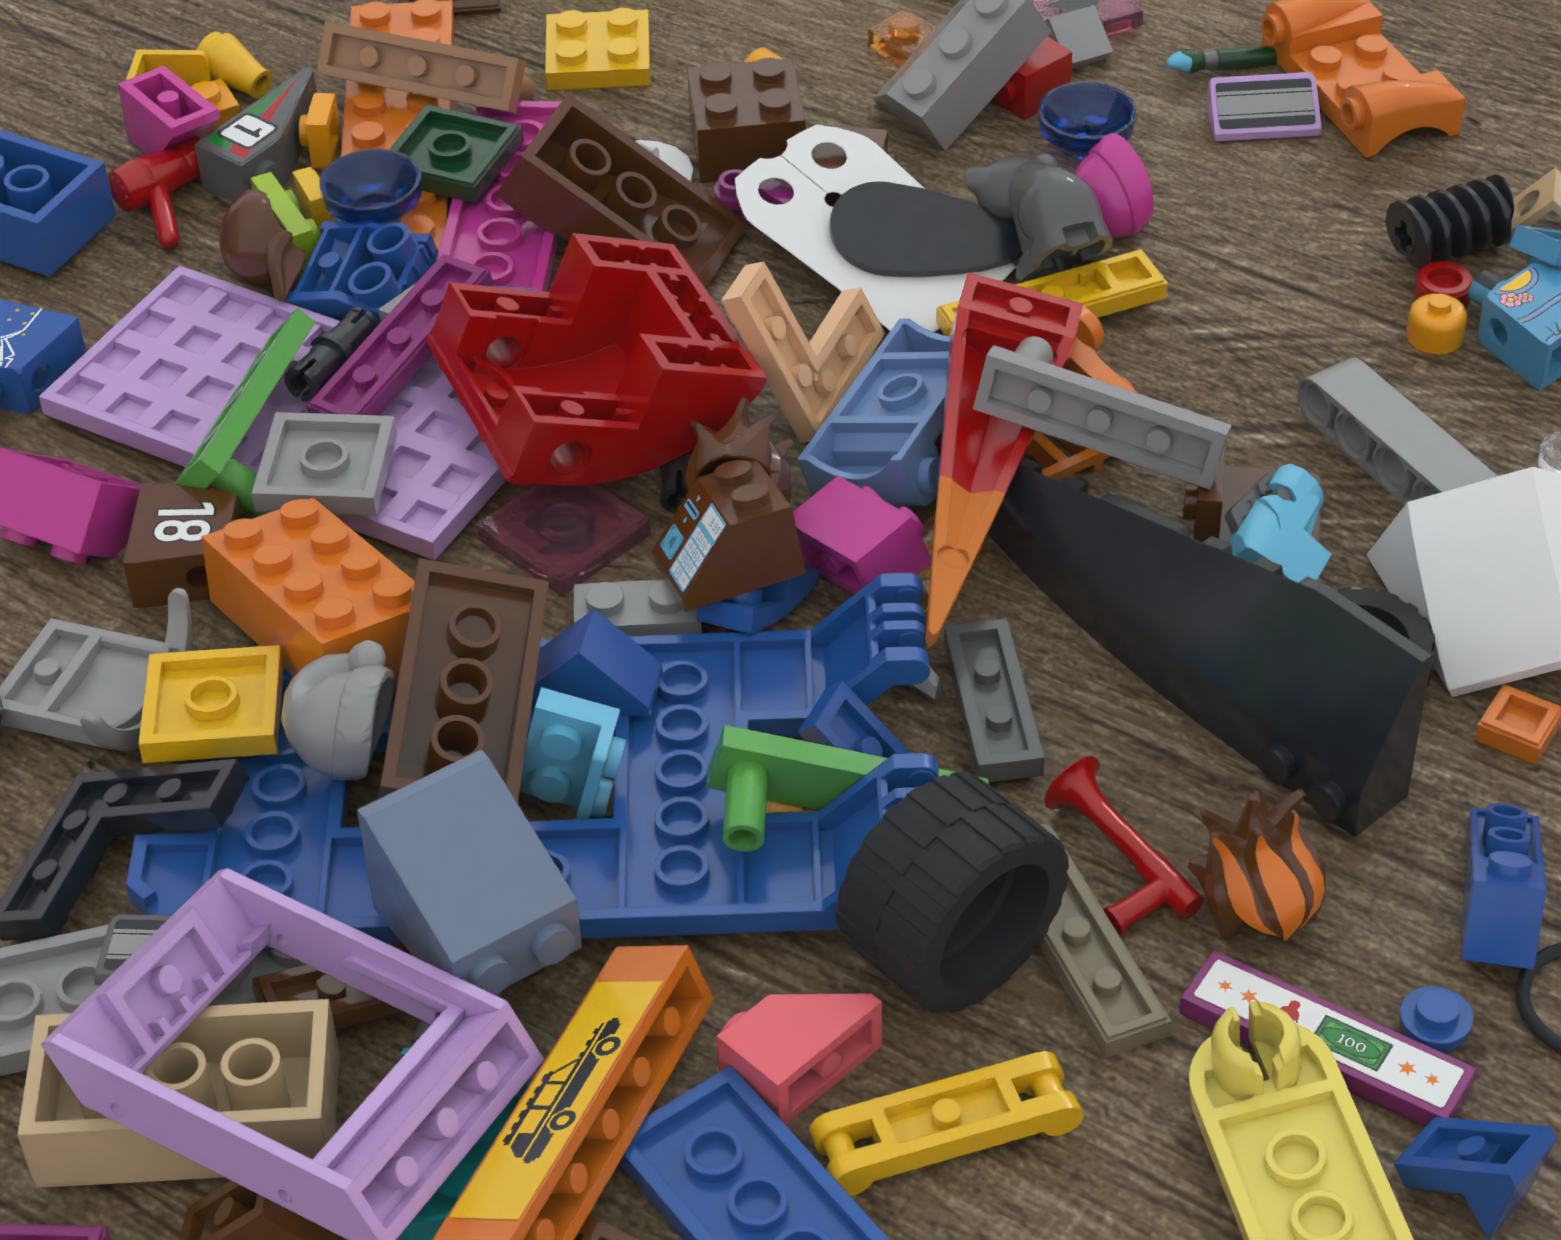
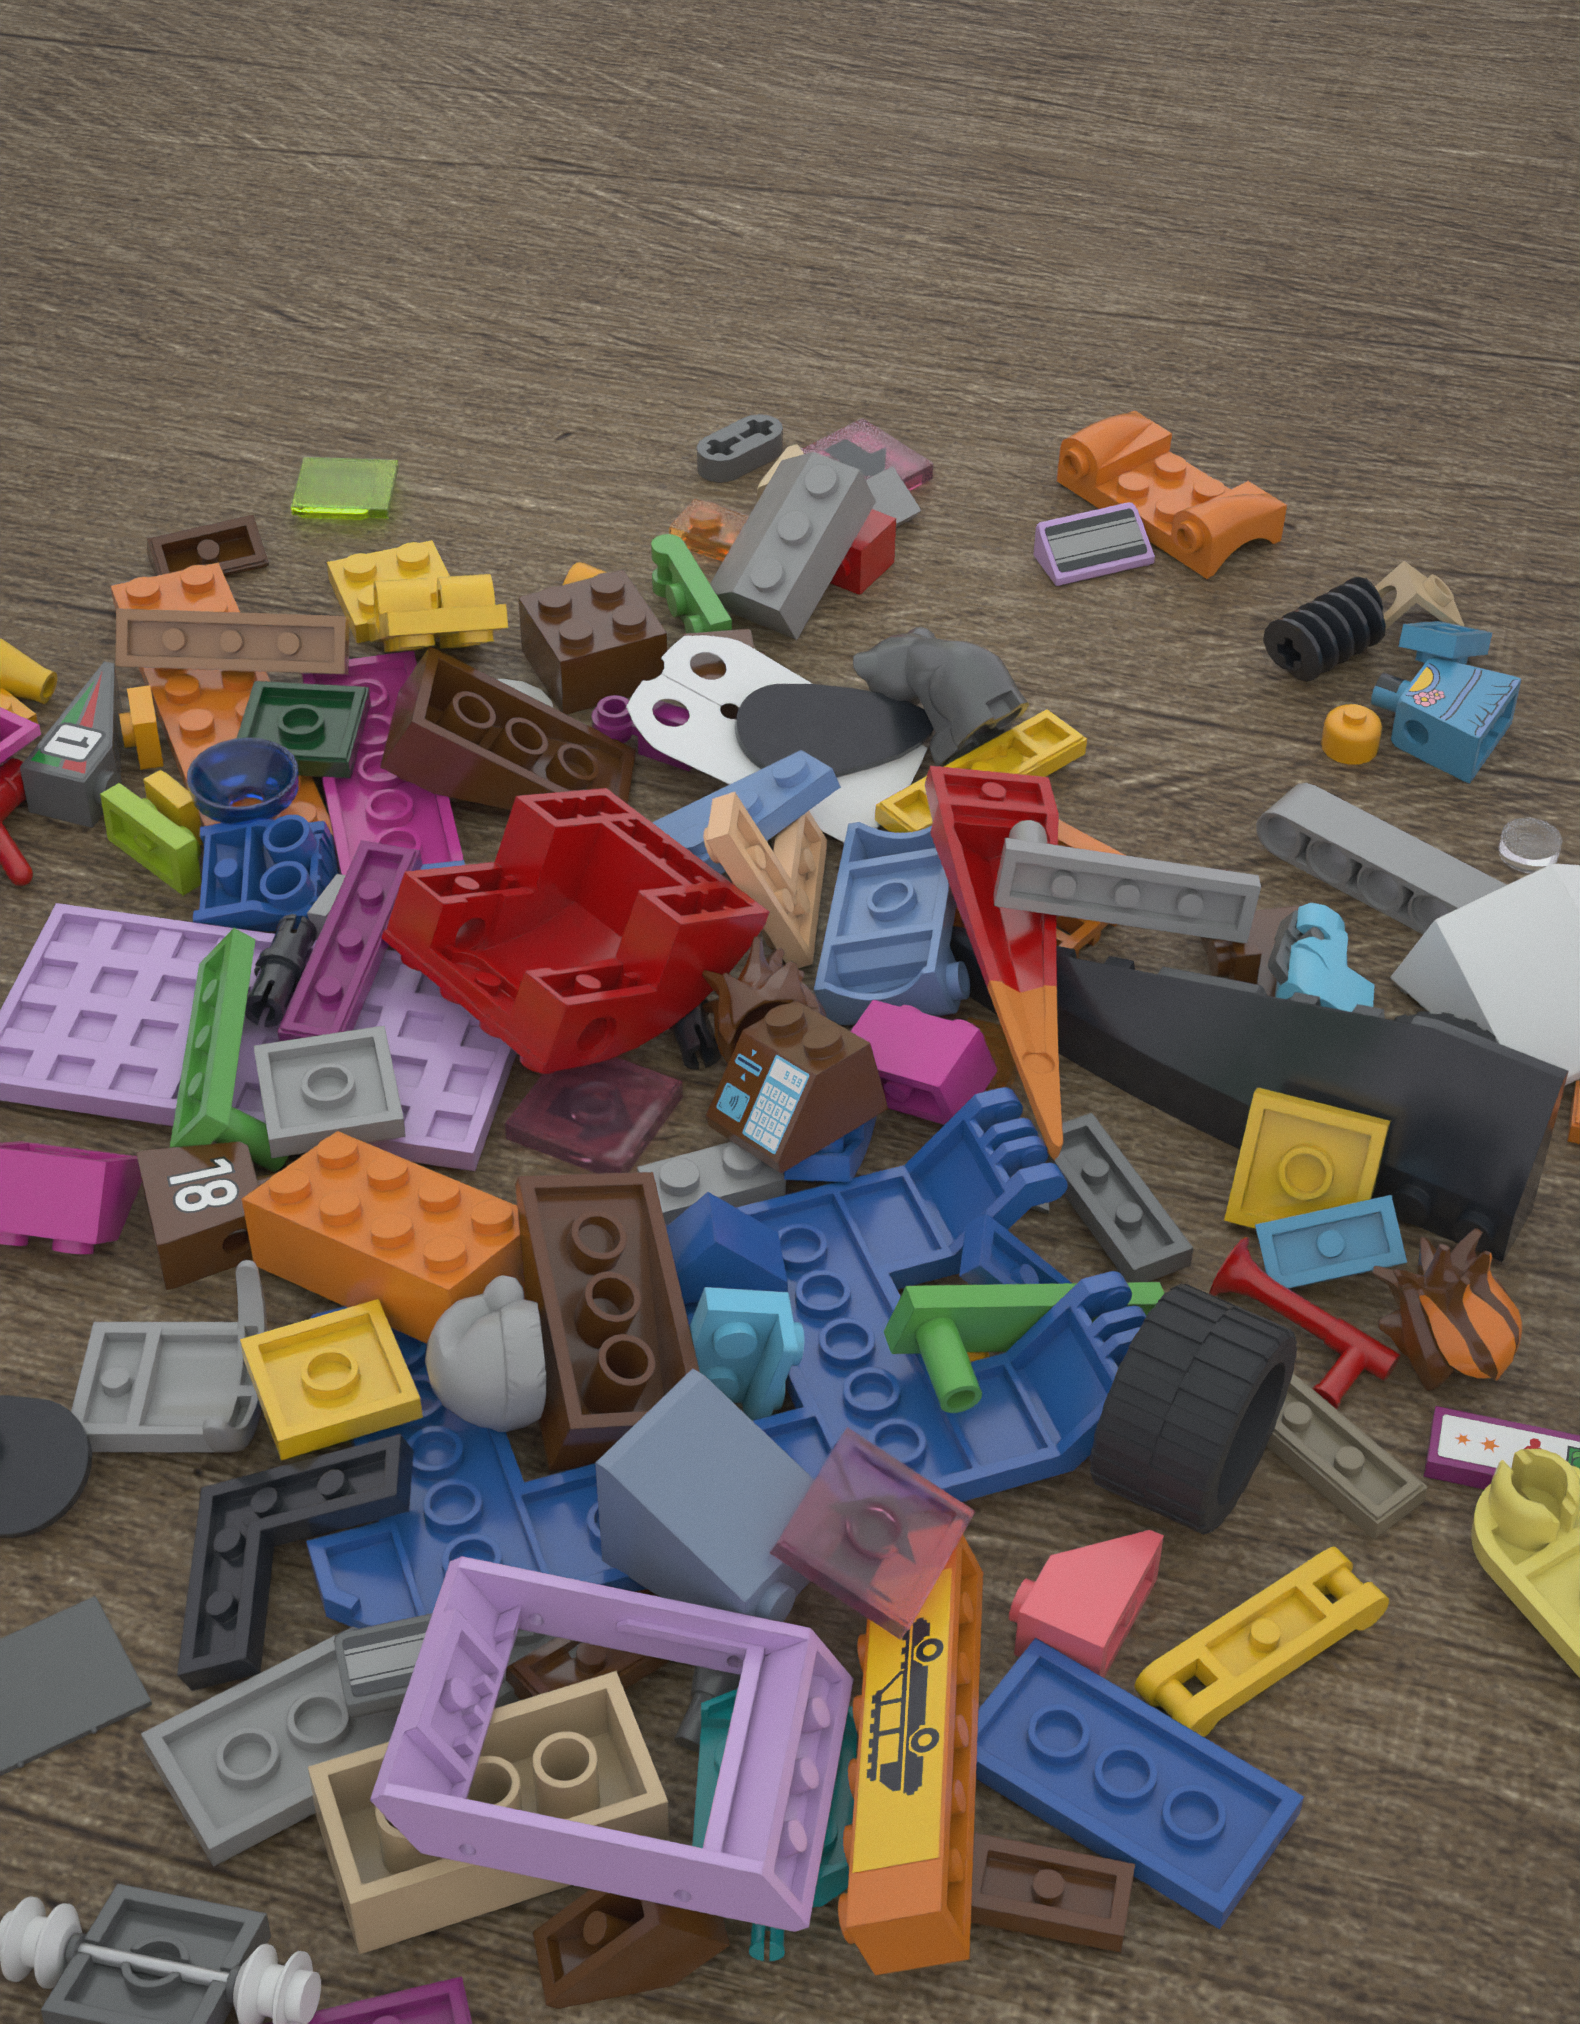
camera: 20 degrees left, 0 degrees up
(257, 245) = (145, 866): reddish brown piece -> none
(572, 67) = (463, 614): none -> yellow plate
(595, 931) = (873, 1533): none -> clear pink tile
(828, 282) = (771, 797): none -> medium blue wing
(852, 82) = (686, 587): none -> bright green plate
(1085, 110) = (933, 575): clear blue piece -> none
(1119, 185) = (1007, 634): dark pink piece -> none
(1176, 779) = (1332, 1243): none -> dark azure plate
(1179, 709) = (1303, 1159): none -> yellow plate
(1222, 59) = (1005, 507): dark green piece -> none
(1444, 279) = (1337, 689): red tile -> none

